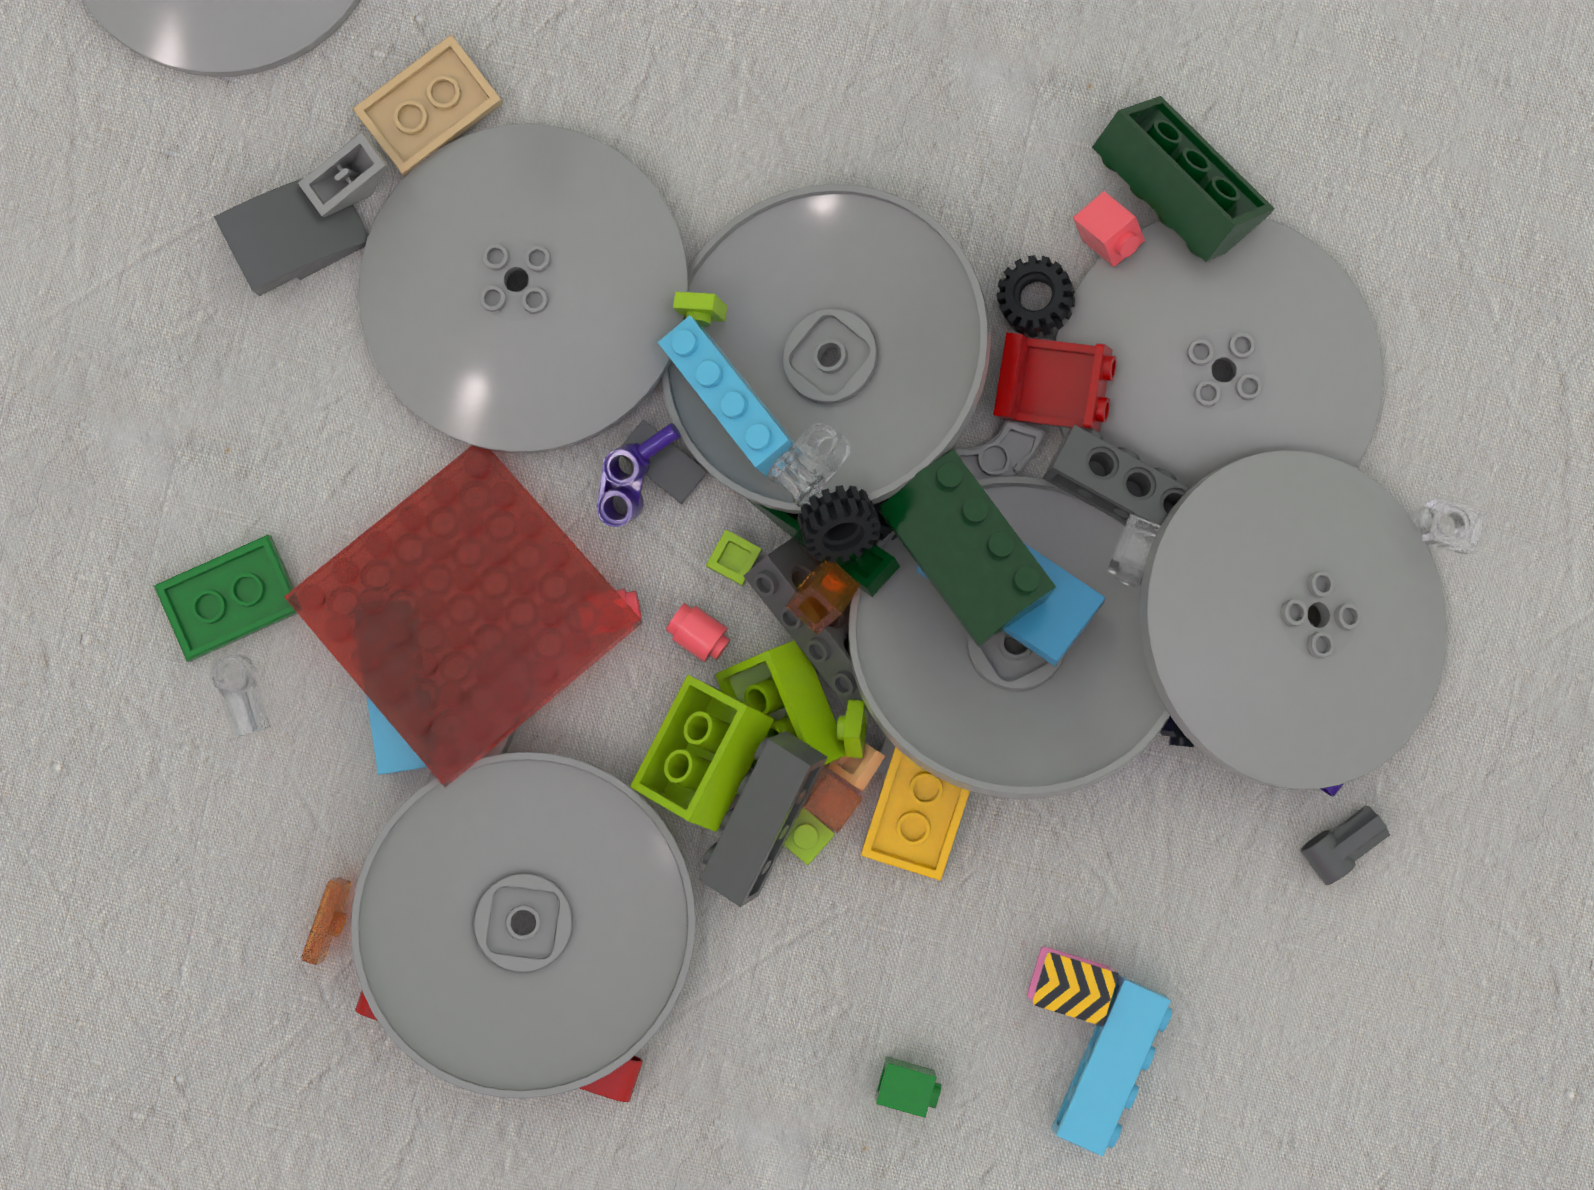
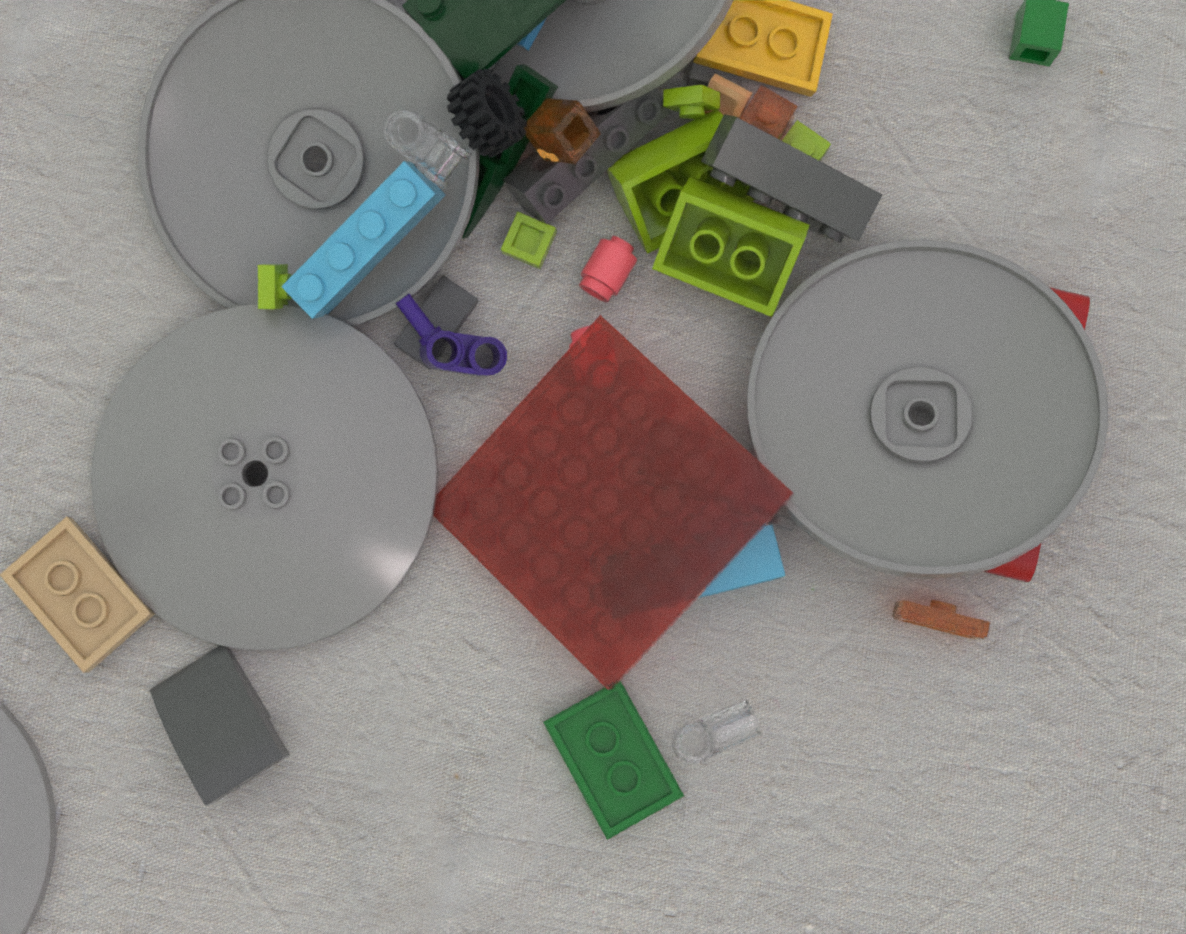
camera: 90 degrees left, 5 degrees down
(345, 176) = (154, 669): light grey slope -> none

